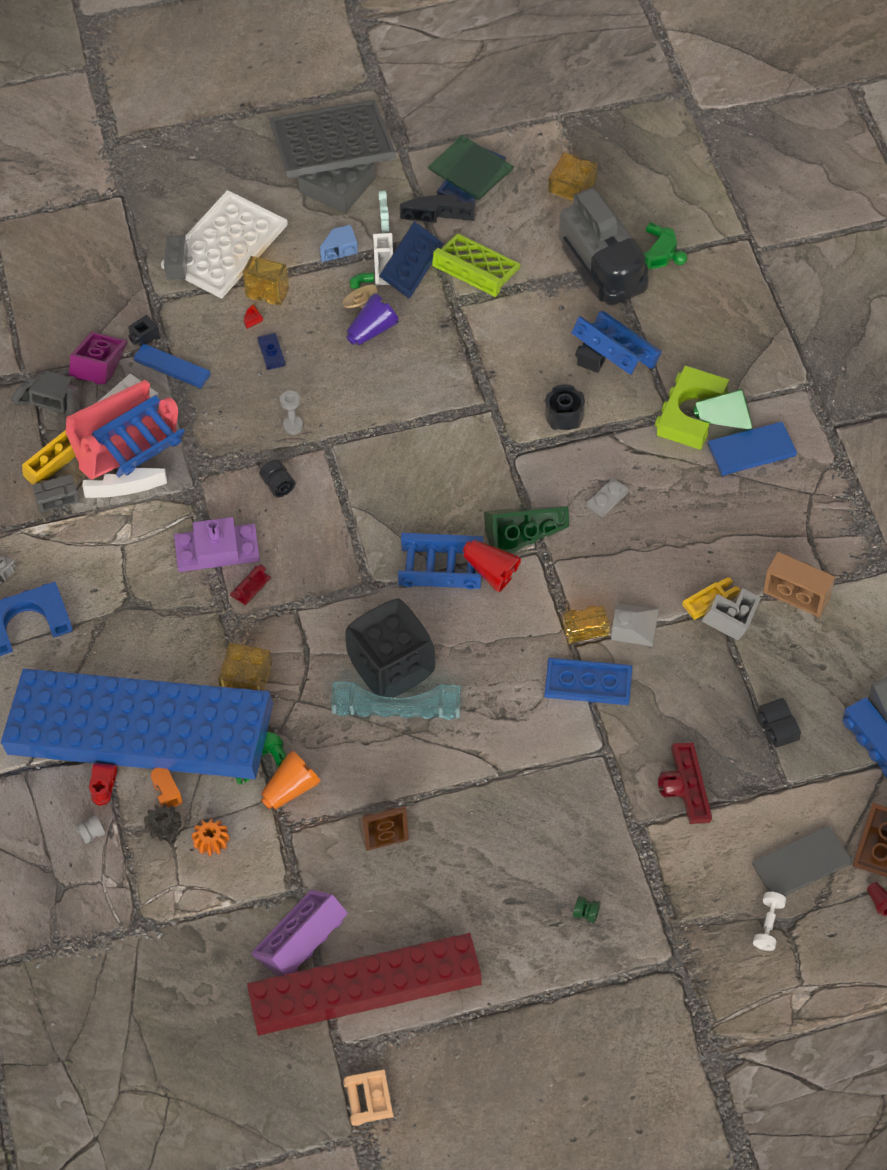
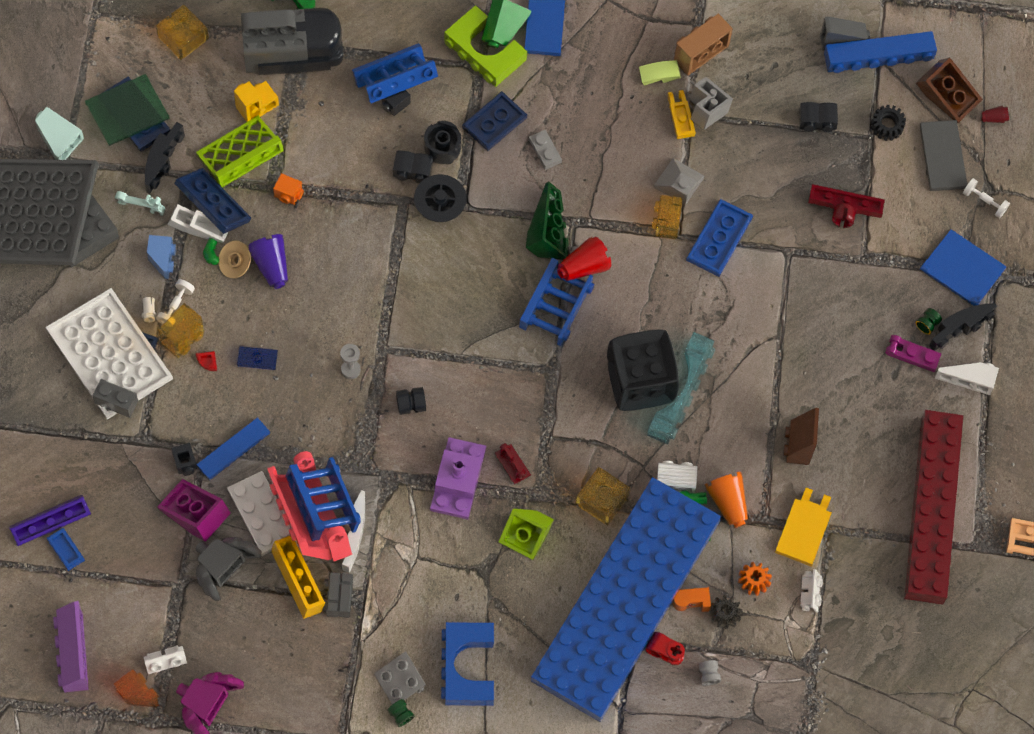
camera: 75 degrees left, 10 degrees up
(25, 284) = (65, 549): none -> blue tile
(48, 263) = (49, 520): none -> dark purple slope
(181, 619) = (526, 531): none -> lime slope
(224, 897) = (812, 583): none -> white hinge
(281, 255) = (149, 309): none -> white pin
(289, 868) = (804, 529): none -> yellow tile
(293, 728) = (678, 476): none -> white brick
(299, 271) = (184, 287): none -> white wheel
(300, 932) = (869, 539): medium lavender slope -> none
(420, 132) = (58, 133): none -> light aqua slope
(452, 310) = (288, 189): none -> orange brick
(502, 426) = (440, 198): none -> black wheel
(528, 252) = (255, 99): none -> yellow brick
(528, 396) = (412, 166): none -> black brick
(541, 975) = (972, 376): none -> white slope
(542, 910) = (913, 353): none -> magenta plate
(607, 948) = (962, 321): none -> black slope
(616, 446) = (494, 121): none -> dark blue tile
(672, 928) = (963, 268): none -> blue piece
(750, 562) = (659, 71): none -> yellowish green slope
(806, 803) = (888, 132): none -> black tyre

